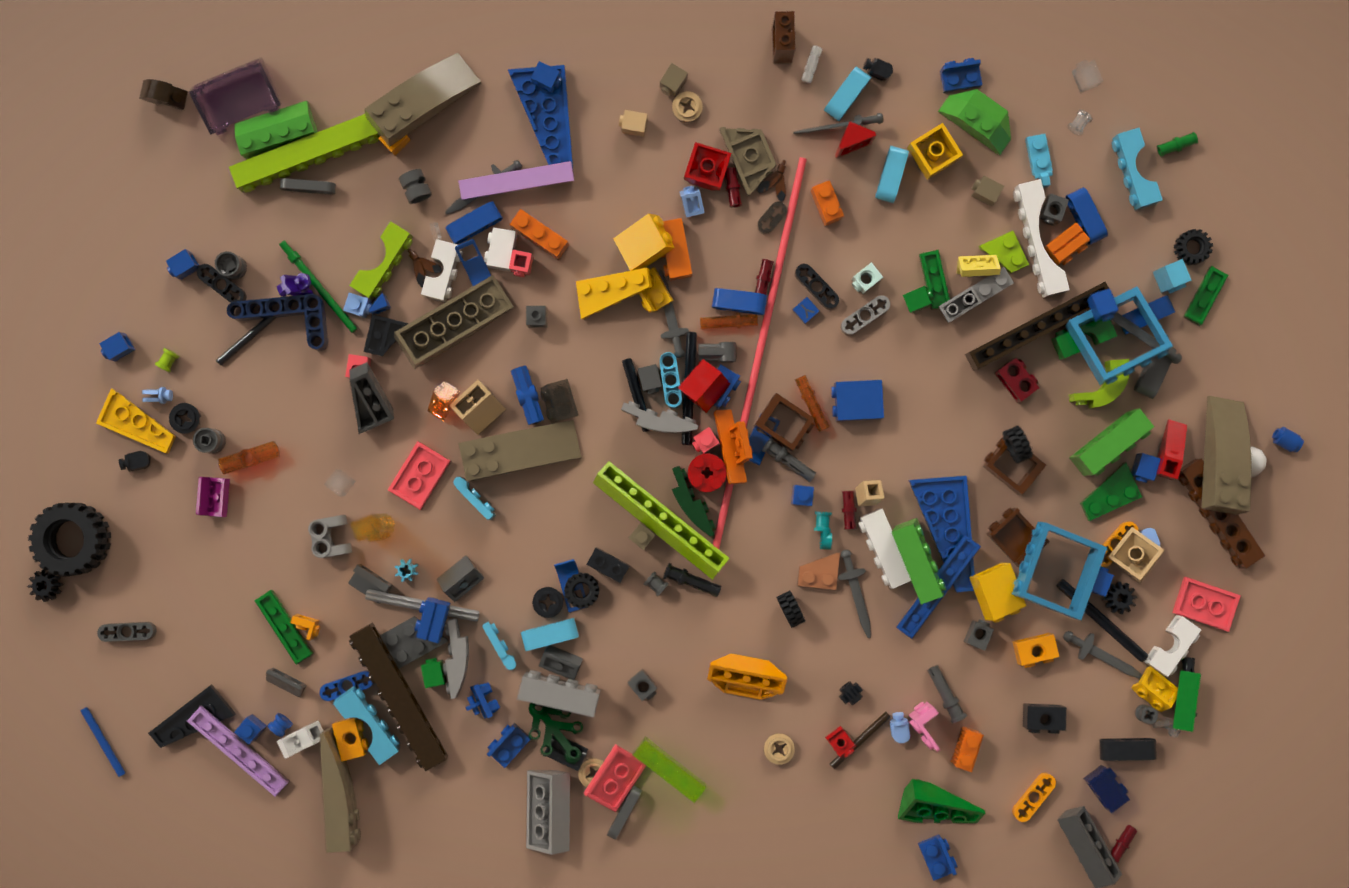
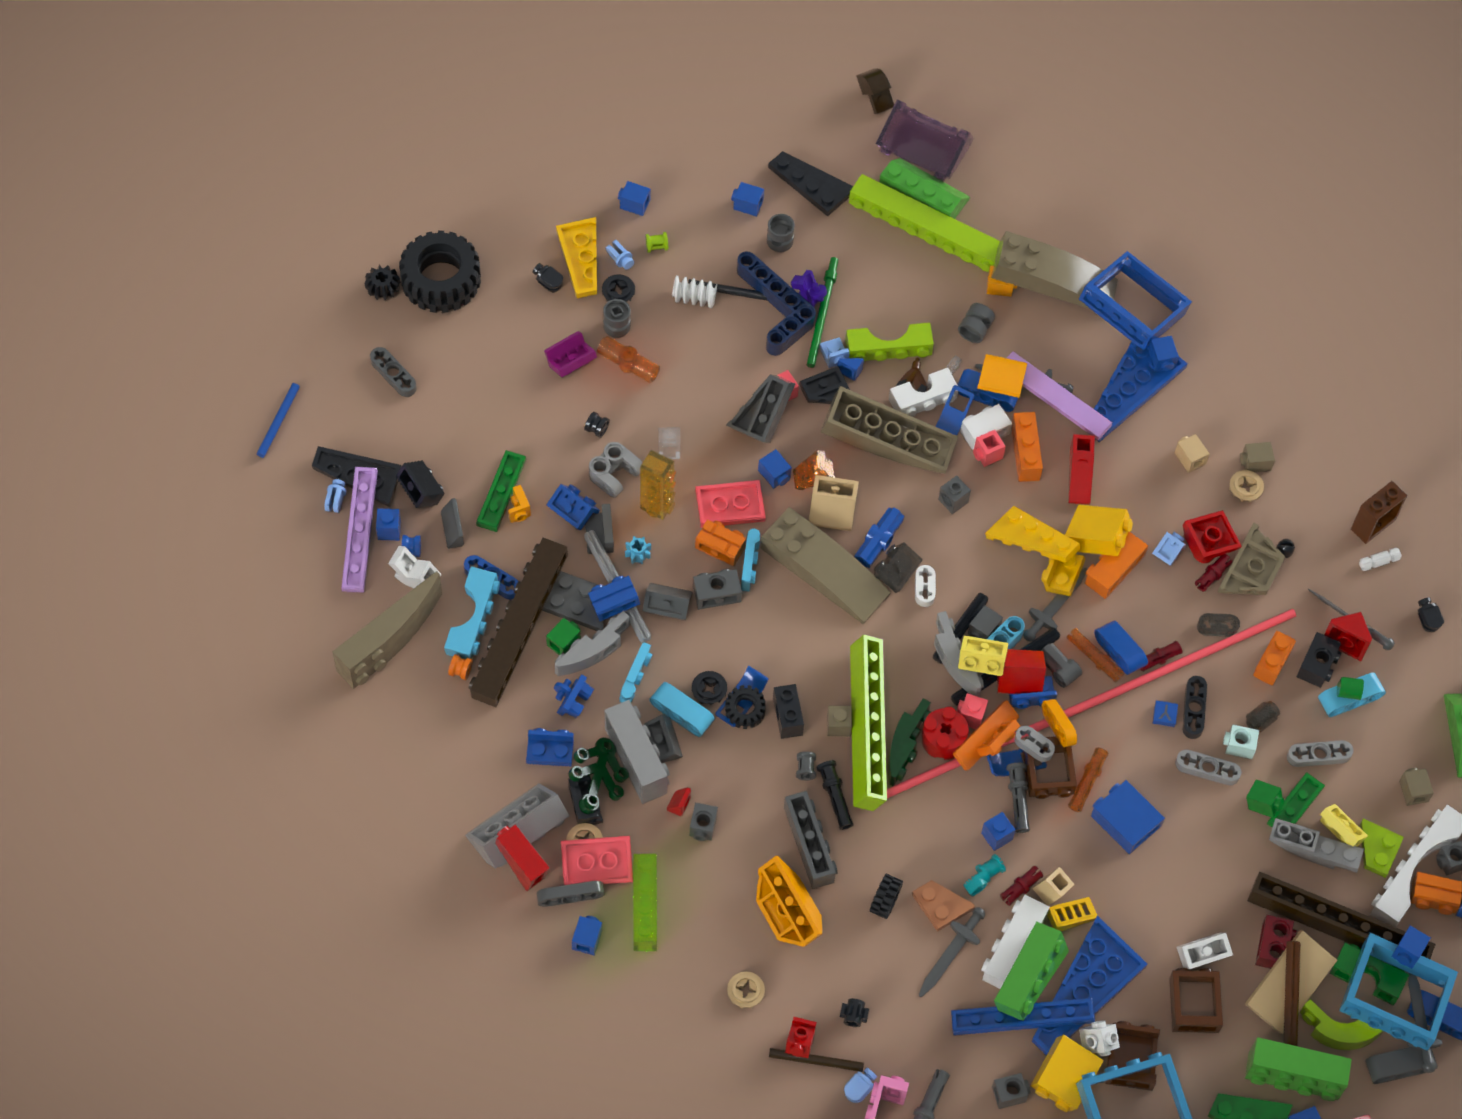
camera: 50 degrees right, 25 degrees down
(198, 749) = (335, 496): none -> light blue arm
(208, 204) = (812, 183): none -> black wing
(213, 285) = (761, 232): black beam -> none
(231, 367) = (694, 292): none -> white piece
(236, 683) = (420, 484): none -> black brick
(284, 521) = (596, 424): none -> black wheel
(307, 186) = (900, 245): dark grey beam -> none
(336, 588) = (572, 506): none -> blue bracket
(347, 749) = (449, 599): light orange brick -> none
(400, 761) = (460, 667): none -> orange wheel
(418, 424) = (775, 469): none -> blue brick
(445, 508) = (720, 542): none -> orange brick
(474, 207) = (1002, 375): none -> light orange slope
(488, 532) = (708, 597): none -> dark grey brick
(490, 85) = (1119, 316): none -> blue window
(578, 833) = (521, 857): none -> red slope
(584, 396) = (930, 586): none -> white beam
(587, 212) = (1081, 469): none -> red slope
(614, 688) = (679, 801): none -> red slope
(662, 824) = (587, 935): none -> blue brick
(678, 407) = (983, 655): none -> light yellow bracket
(712, 627) = (809, 839): none -> dark grey brick
(755, 124) = (1287, 547): none -> black hinge
(763, 393) = (1059, 723): none -> light orange beam
(763, 419) = (1034, 743): none -> light grey beam
(776, 179) = (1255, 605): reddish brown piece -> none
(847, 93) = (1385, 605): medium azure beam -> none
(851, 185) = (1320, 648): none -> black brick
(860, 248) = (1263, 716): none -> clear smoke brick
(883, 505) = (1076, 921): none -> yellow slope
(893, 176) = (1350, 688): none -> green brick
(917, 217) = (1337, 757): none -> light grey beam
(934, 151) = (1406, 712): yellow brick -> none
(988, 432) = (1204, 950): none -> white brick
(992, 551) = (1104, 1038): none -> white brick
(1017, 444) = (1217, 973): black tyre -> none
(1052, 395) = (1269, 996): none -> tan tile
(1070, 411) = (1292, 981): none -> reddish brown axle

